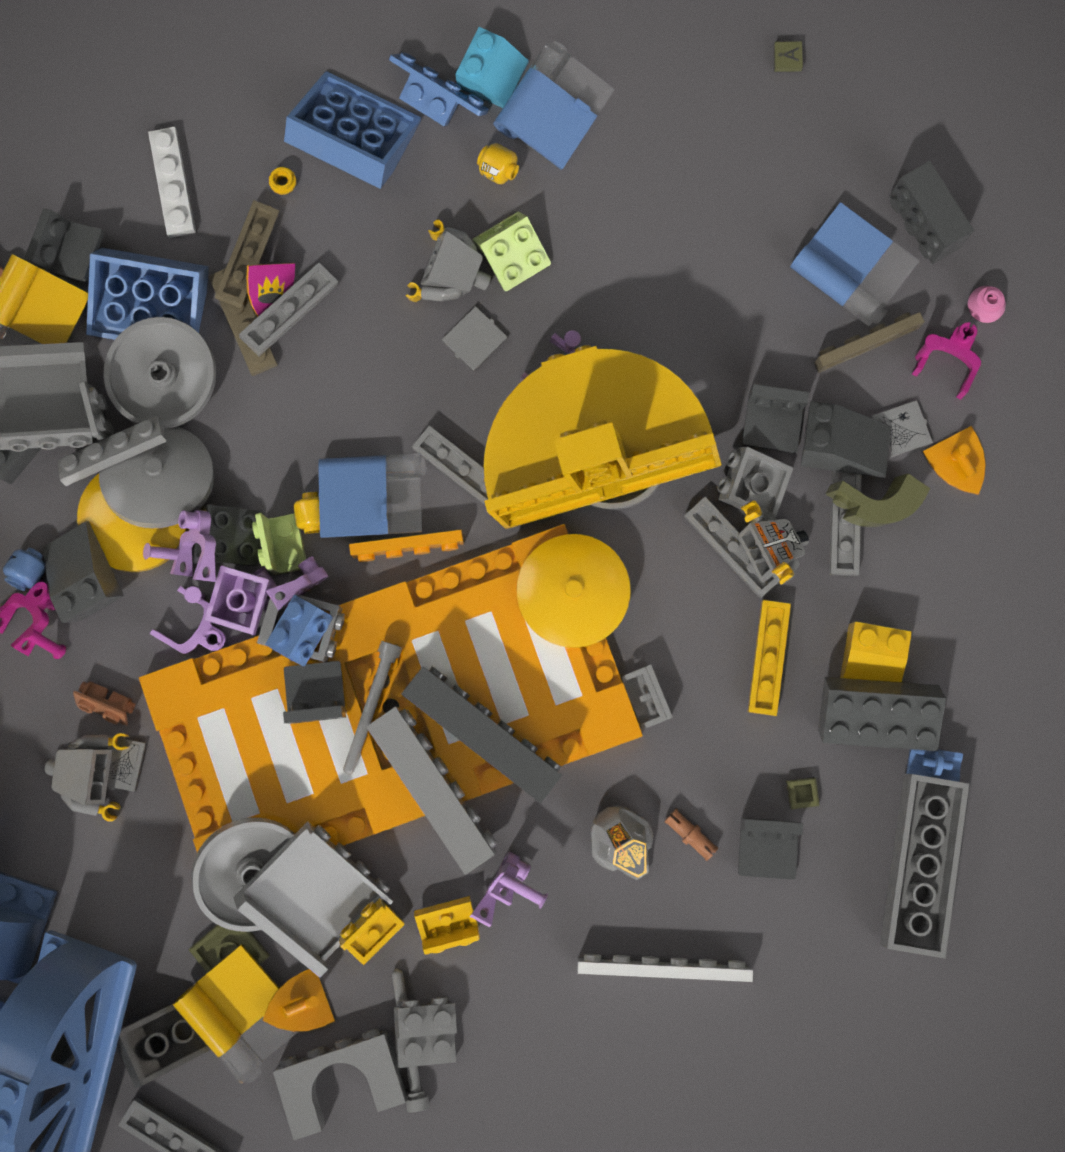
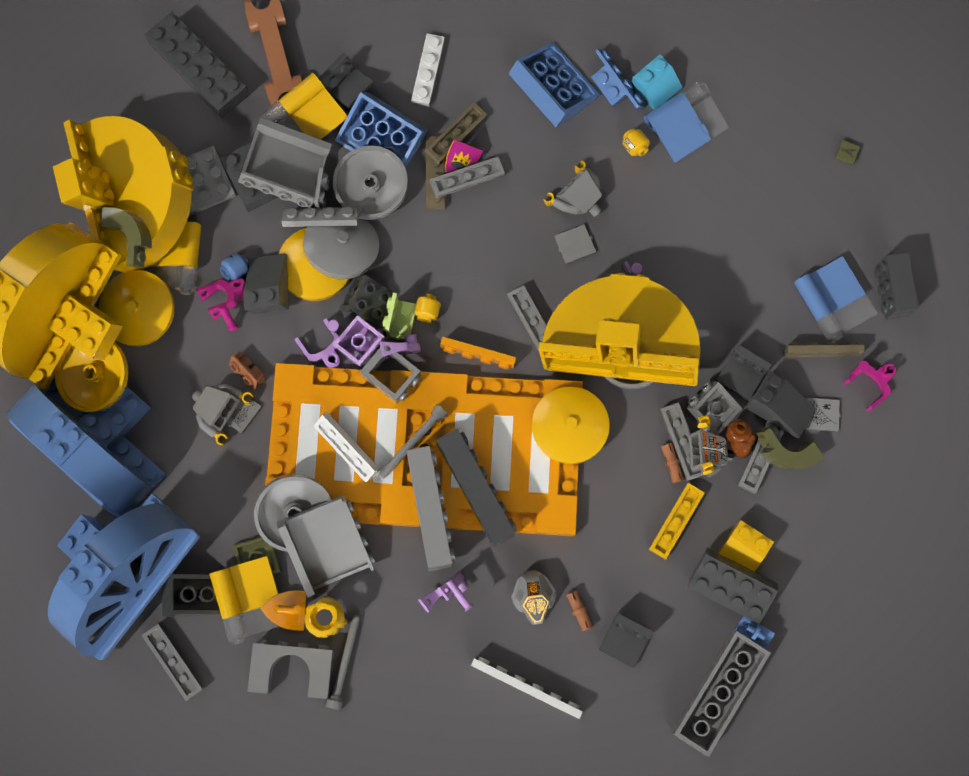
camera: 15 degrees right, 5 degrees down
(199, 529) = (353, 288): lavender piece -> none
(280, 173) = (496, 92): yellow plate -> none
(283, 752) = (346, 447): none -> white plate
(299, 630) = (389, 374): medium blue bracket -> none
(314, 692) = (381, 418): dark grey bracket -> none
(370, 495) = (468, 312): medium blue door -> none
(370, 931) = (351, 583): yellow bracket -> none
(374, 995) = (338, 620): none -> yellow piece
(425, 1032) = (358, 661): light grey plate -> none
(447, 925) = (400, 600): yellow bracket -> none
(513, 250) = (622, 200): yellowish green bracket -> none
(646, 697) = (588, 512): light grey hinge -> none
(730, 582) = (672, 463): none -> nougat pin
(802, 793) = (662, 616): olive tile -> none
(807, 509) = (740, 437): none -> dark orange head
(959, 461) = (851, 449): light orange shield -> none
(986, 304) = (909, 358): bright pink cone -> none

